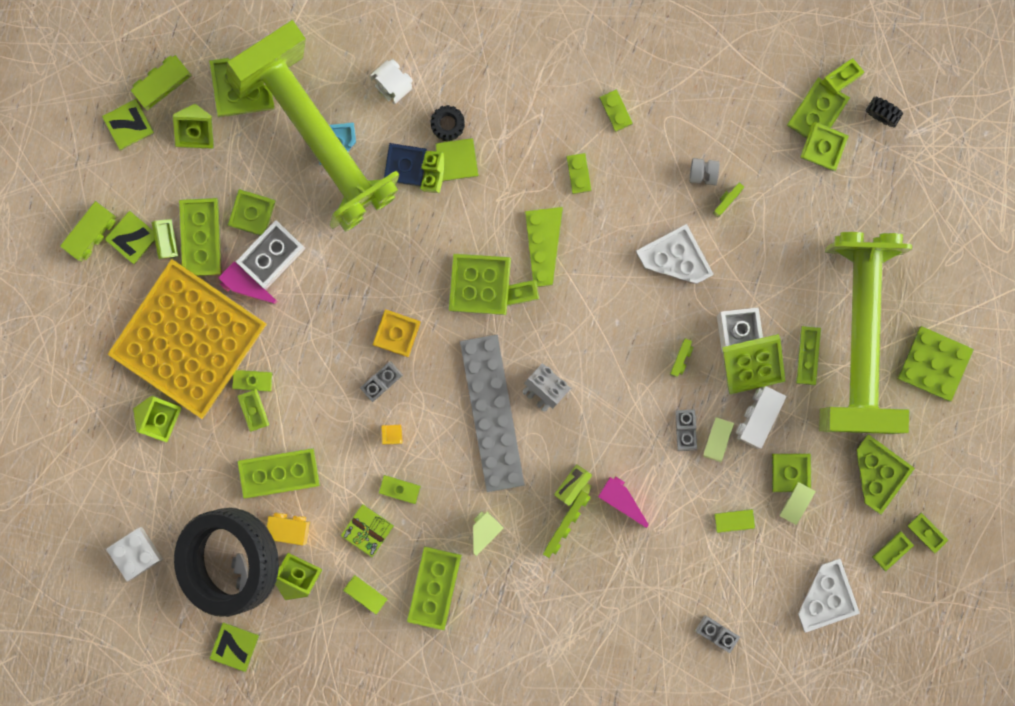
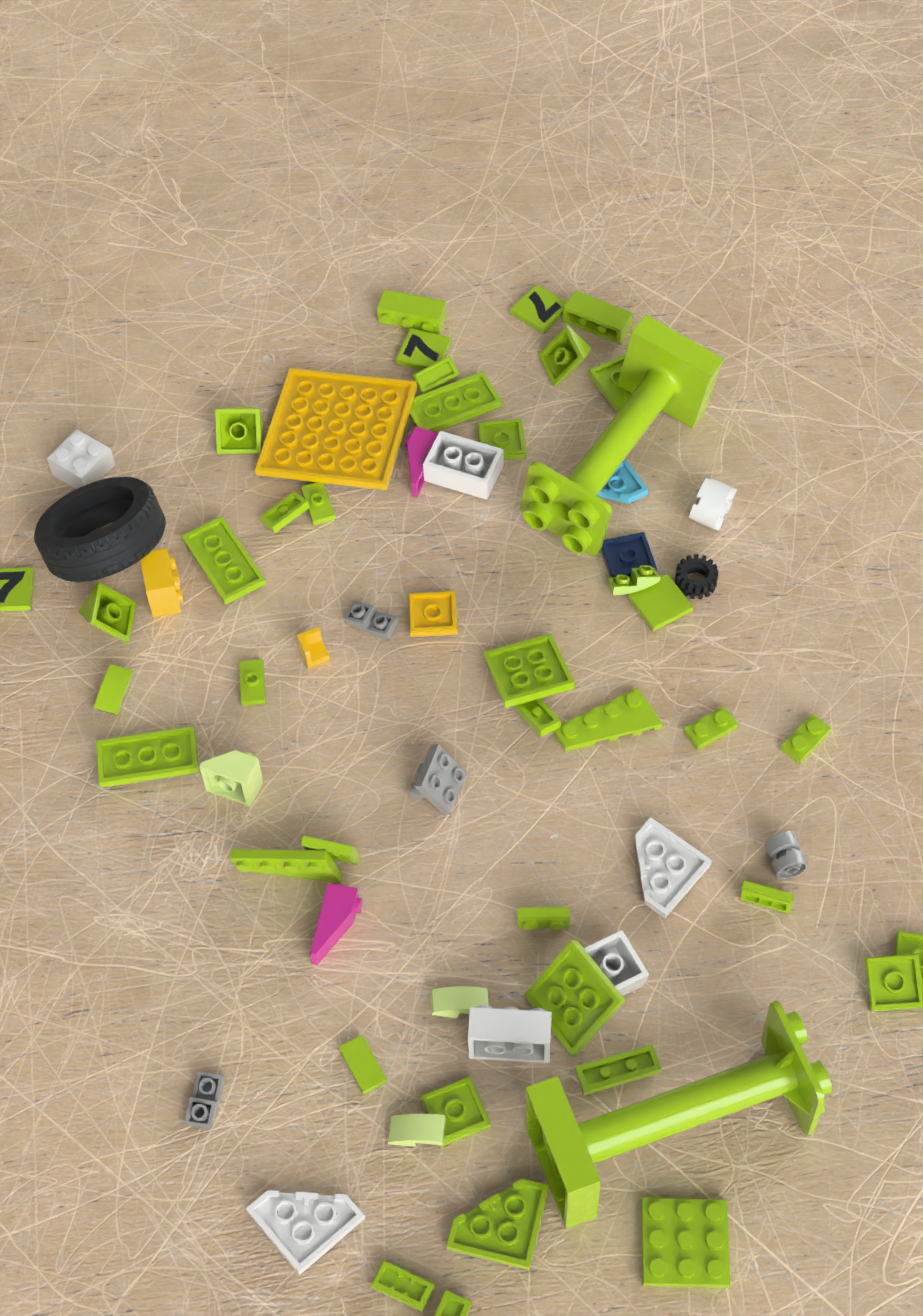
camera: 70 degrees right, 30 degrees down
(367, 530) = (191, 668): lime tile -> none
(492, 413) = (381, 743): light grey plate -> none
(686, 430) = (456, 962): light grey slope -> none

